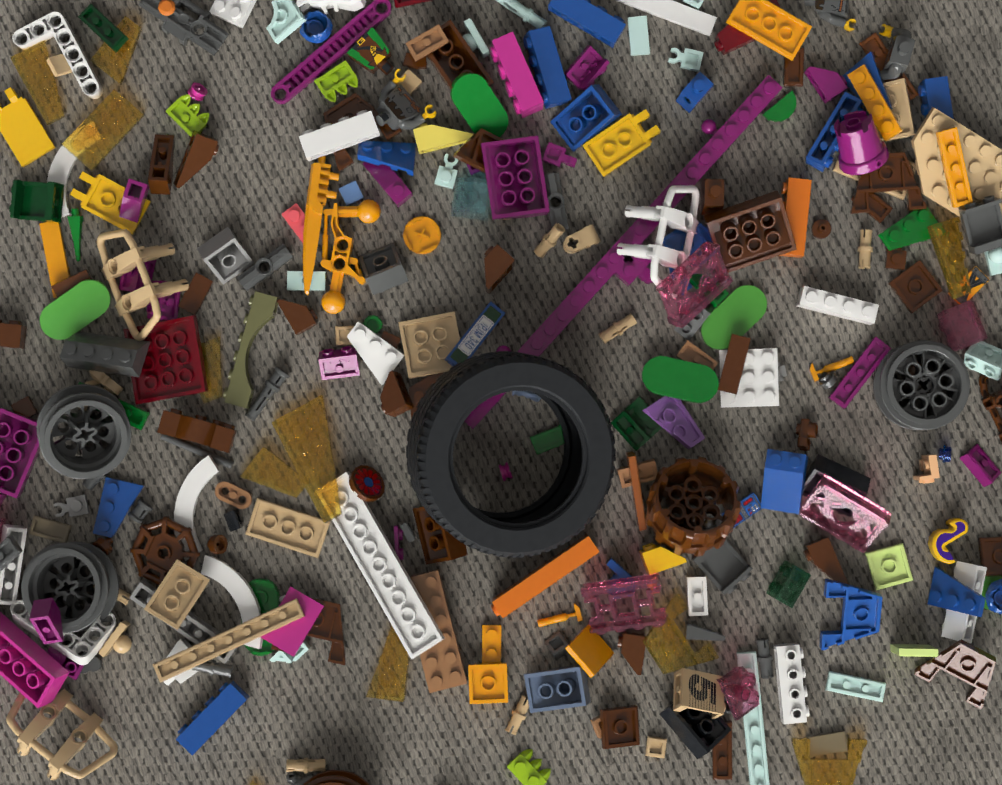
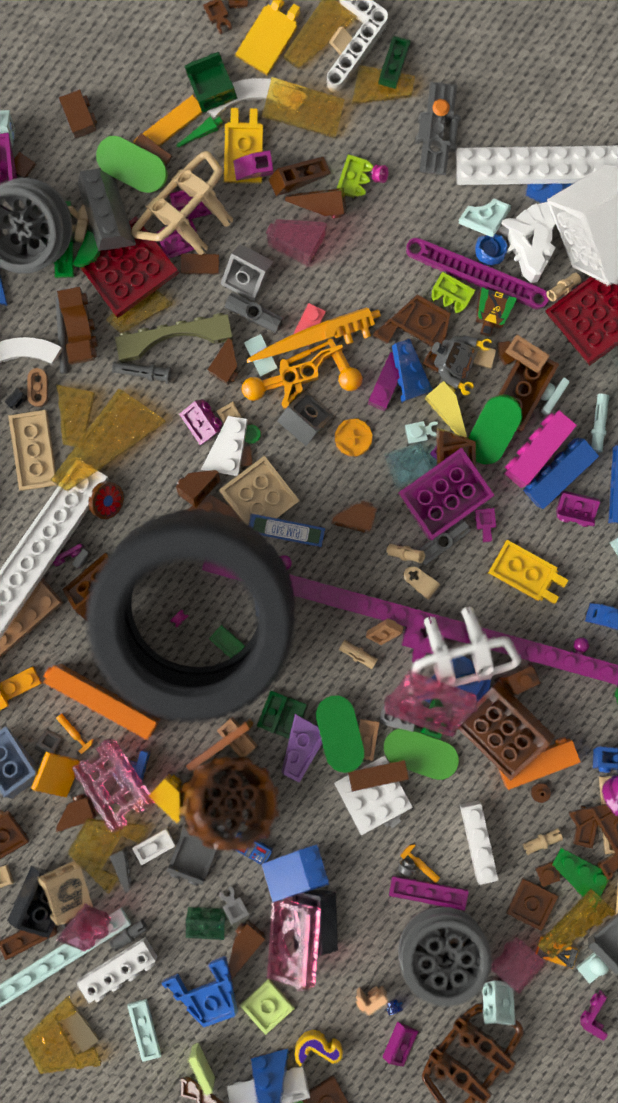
camera: 60 degrees right, 0 degrees up
(133, 387) = (88, 251): none -> green tile
(218, 195) = (296, 238): none -> clear pink slope
(339, 135) = (404, 318): white brick -> none
(351, 193) = (358, 355): medium blue tile -> none
(586, 117) = (533, 530): blue slope -> none
(609, 294) = (384, 631): none -> medium nougat plate
(787, 551) = (234, 909): none -> light grey plate
(806, 431) = (351, 870): reddish brown plate -> none

